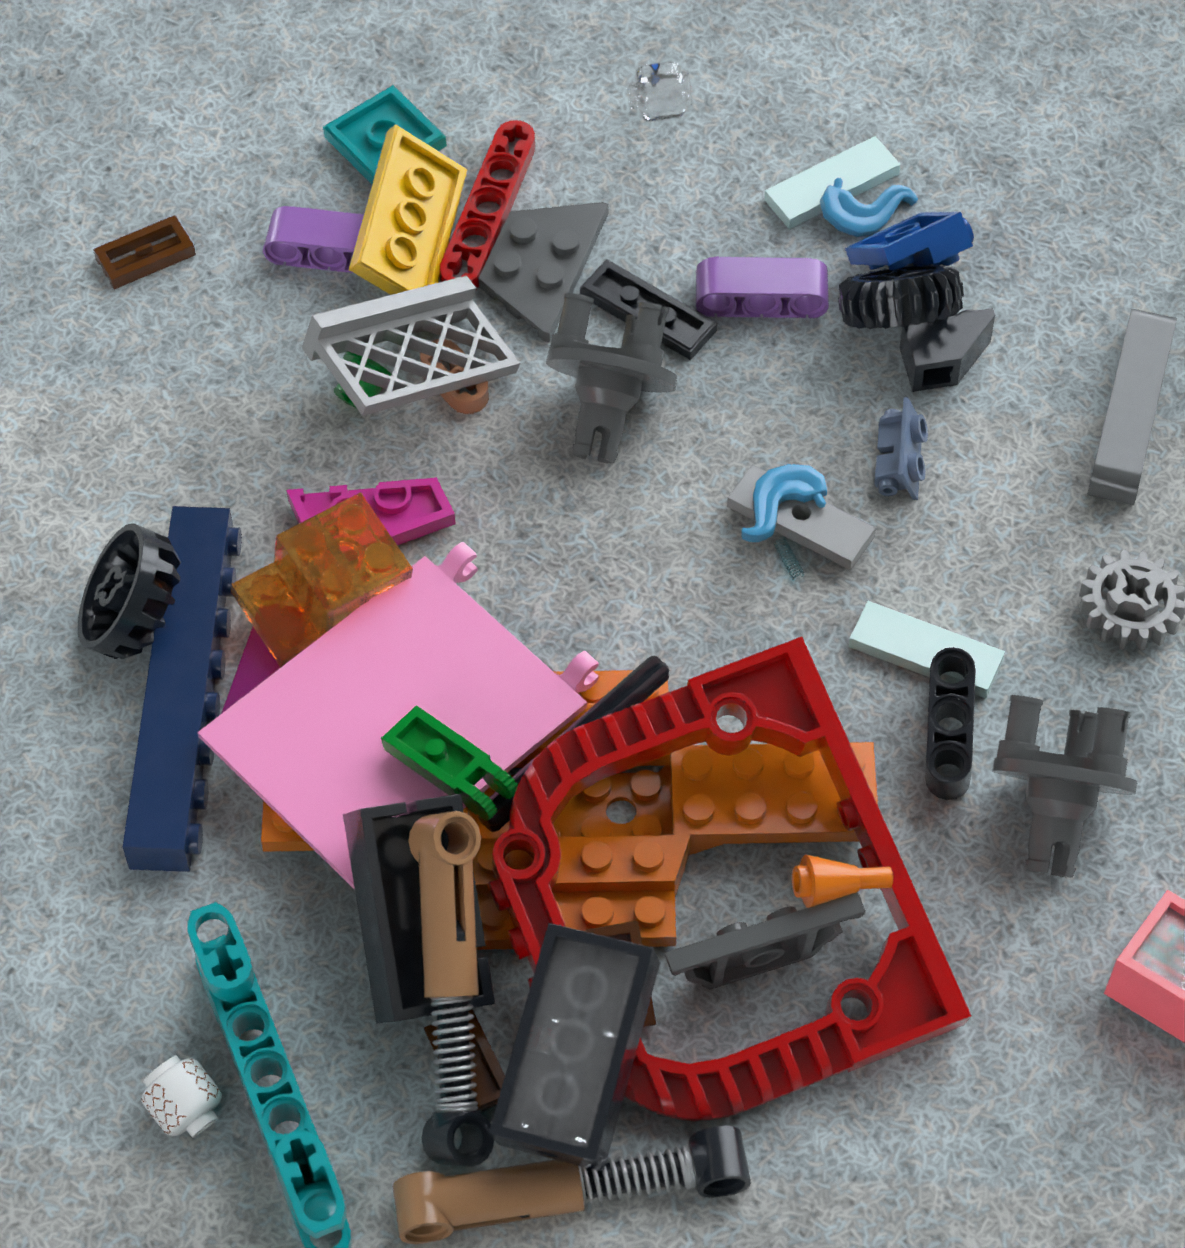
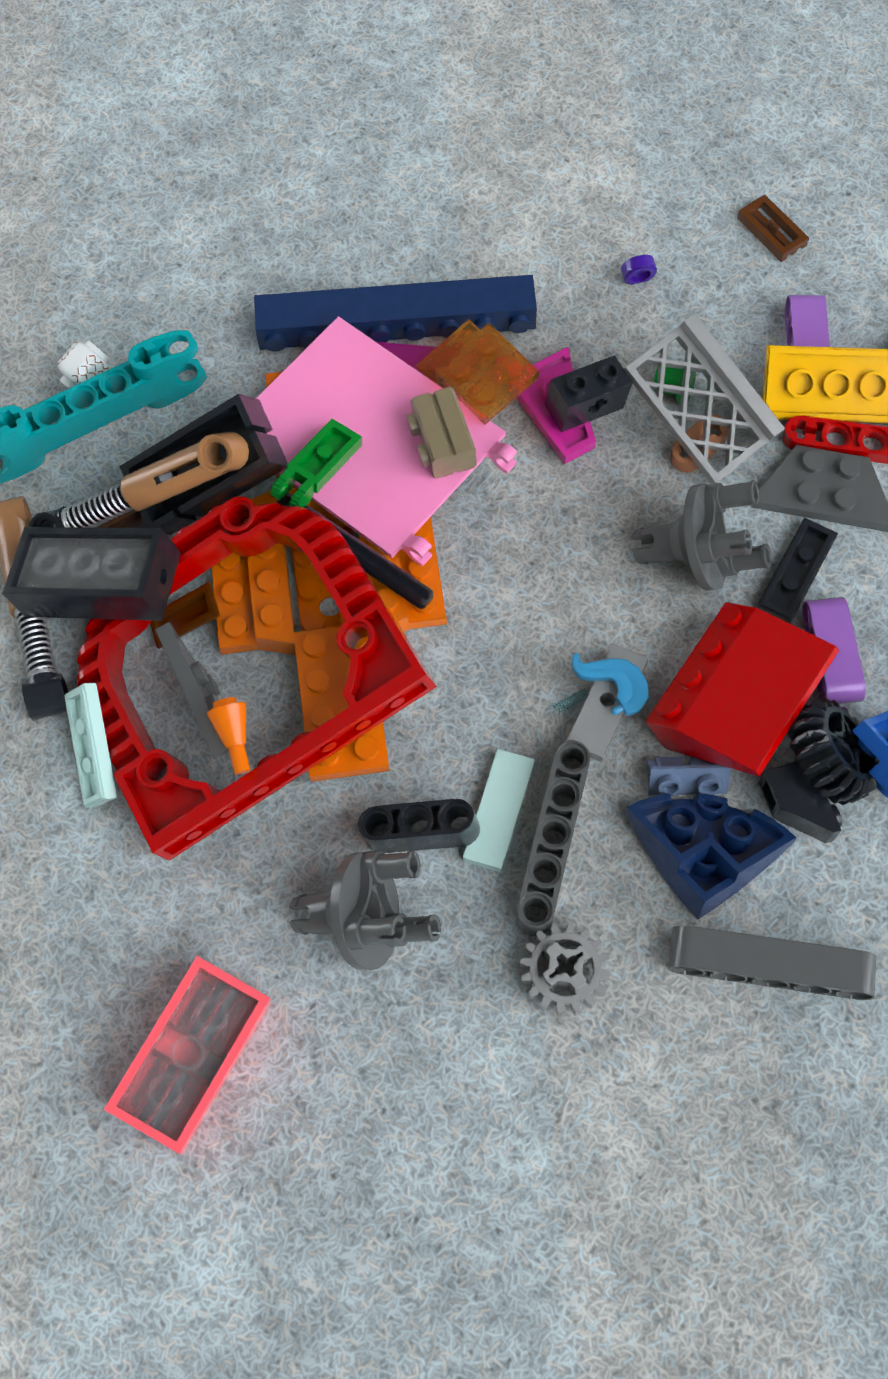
camera: 85 degrees right, 10 degrees up
(128, 592) = (452, 261): black gear -> none
(180, 399) = (638, 269): none -> dark purple tile
(381, 463) = (588, 393): none -> black brick
(427, 613) = (443, 433): none -> dark tan brick
(805, 1097) = (90, 745): none -> light aqua tile
(817, 366) = (740, 689): none -> red slope
(993, 444) = (706, 846): none -> dark blue brick
(996, 589) = (553, 818): none -> dark grey beam

